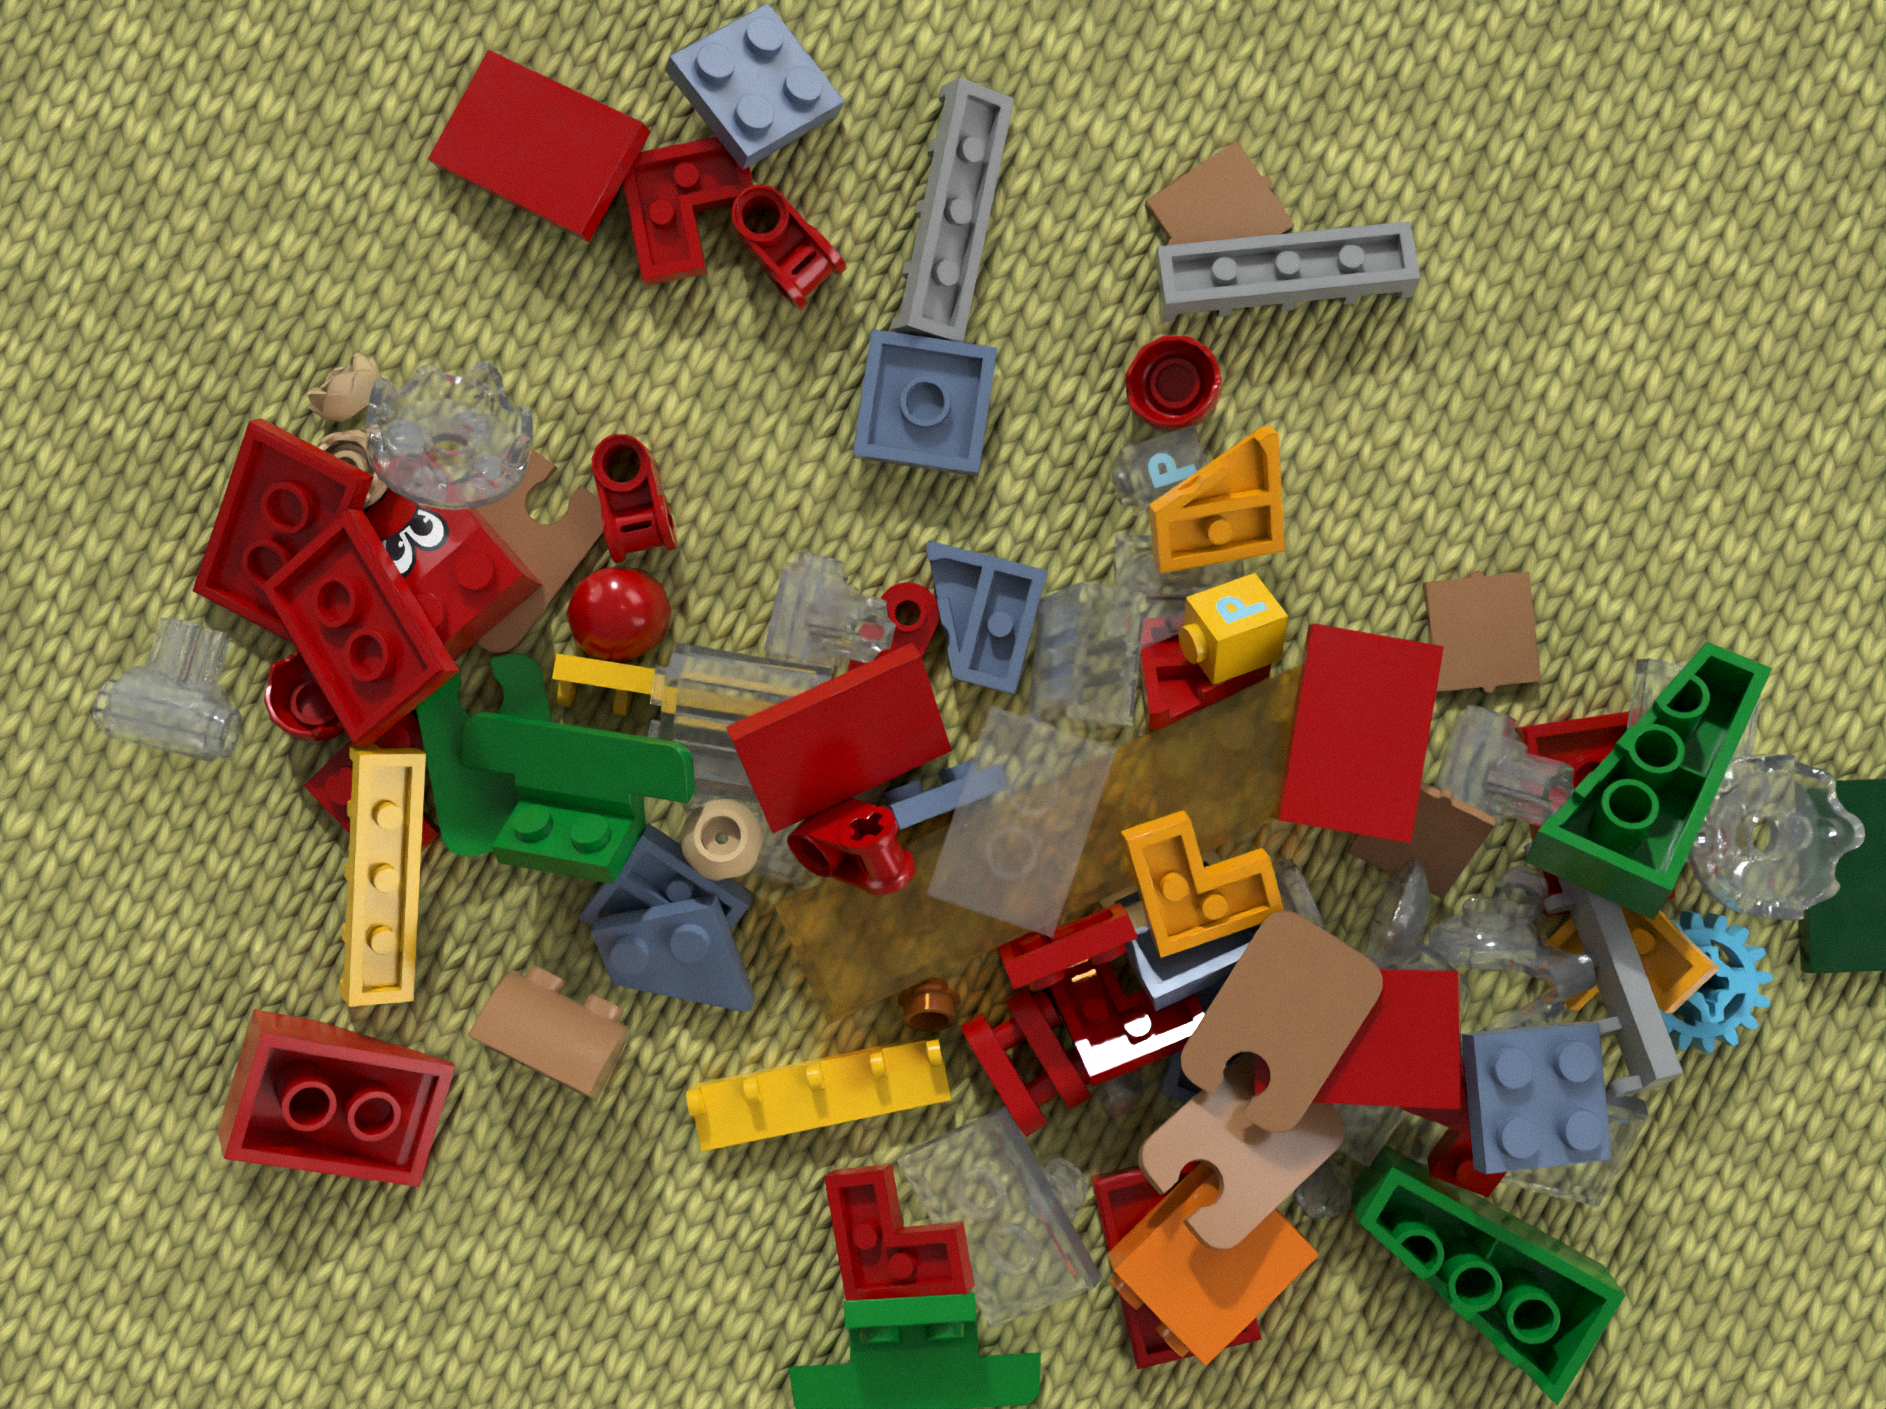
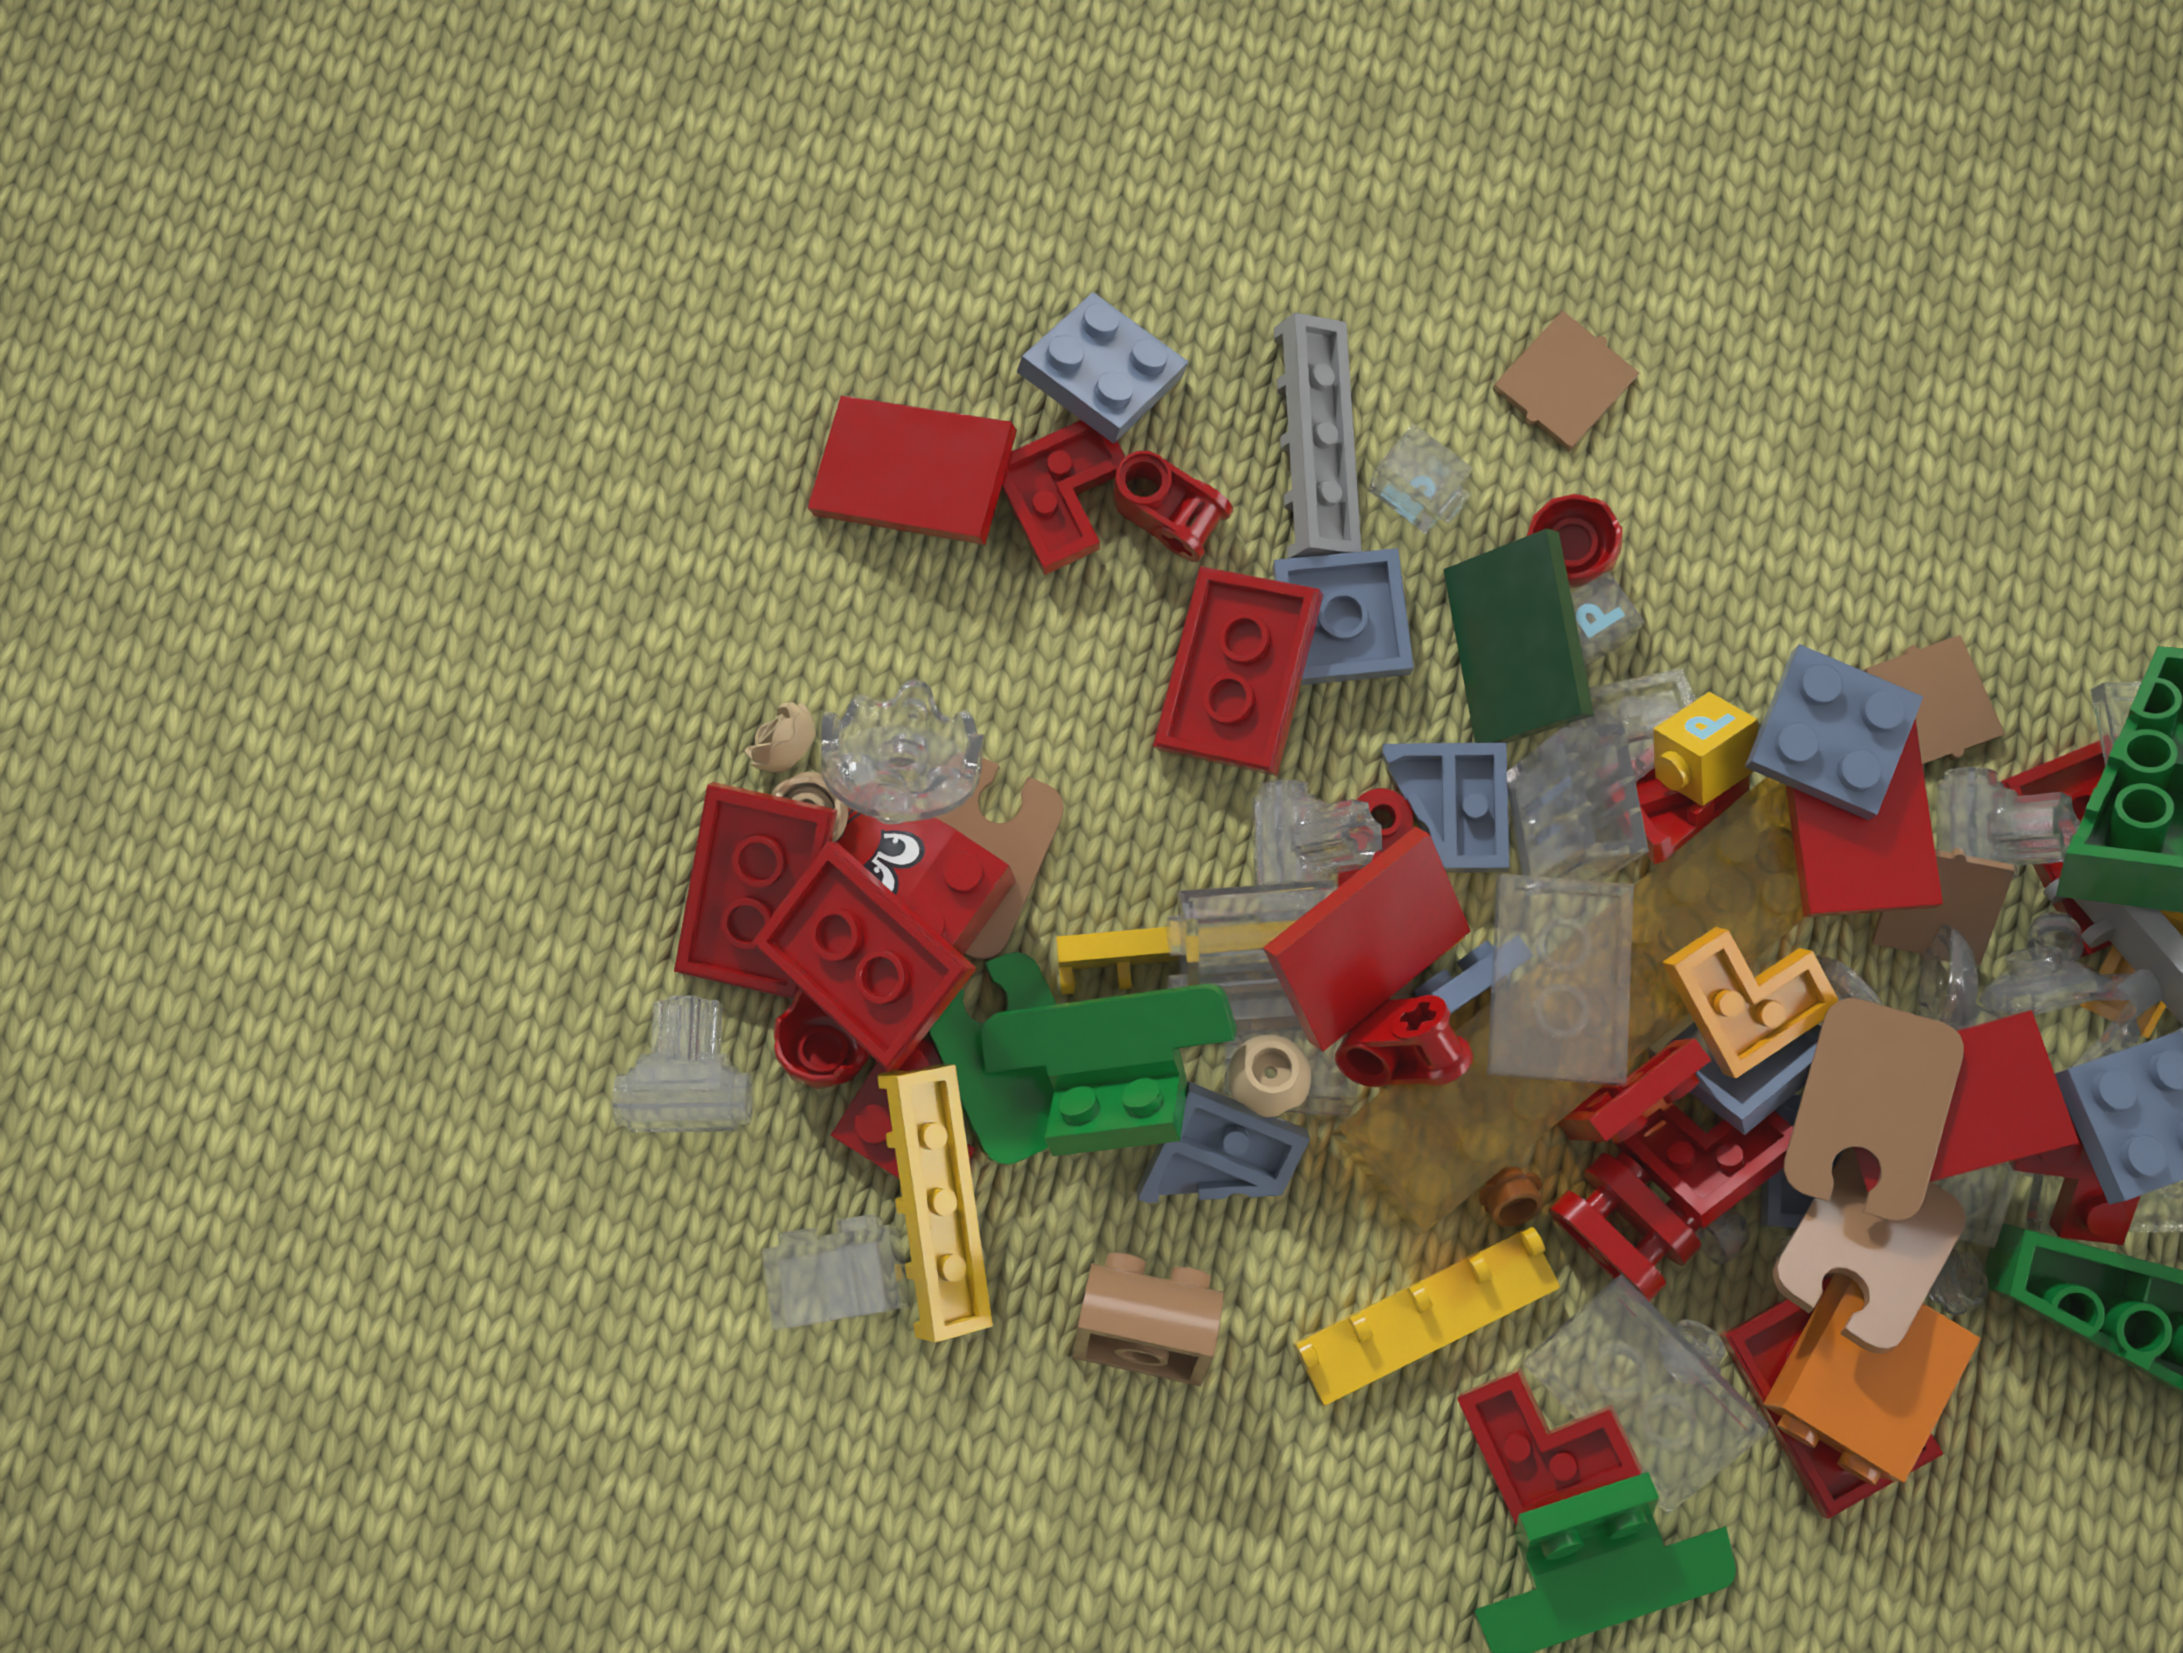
camera: 15 degrees left, 10 degrees down
(273, 924) = (836, 1276): none -> clear brick
(332, 1101) = (938, 1449): red slope -> none
(618, 614) = (1098, 889): red hair -> none
(632, 502) = (1088, 778): red piece -> none
(676, 953) = (1246, 1207): sand blue wing -> none
(807, 431) = (1238, 670): none -> red tile
(1041, 283) = (1421, 480): none -> clear brick
(1086, 471) = (1518, 640): none -> dark green tile
(1223, 509) = (1660, 640): light orange wing -> none
(1286, 269) = (1646, 413): light grey hinge -> none
(1356, 649) = (1834, 732): none -> sand blue plate

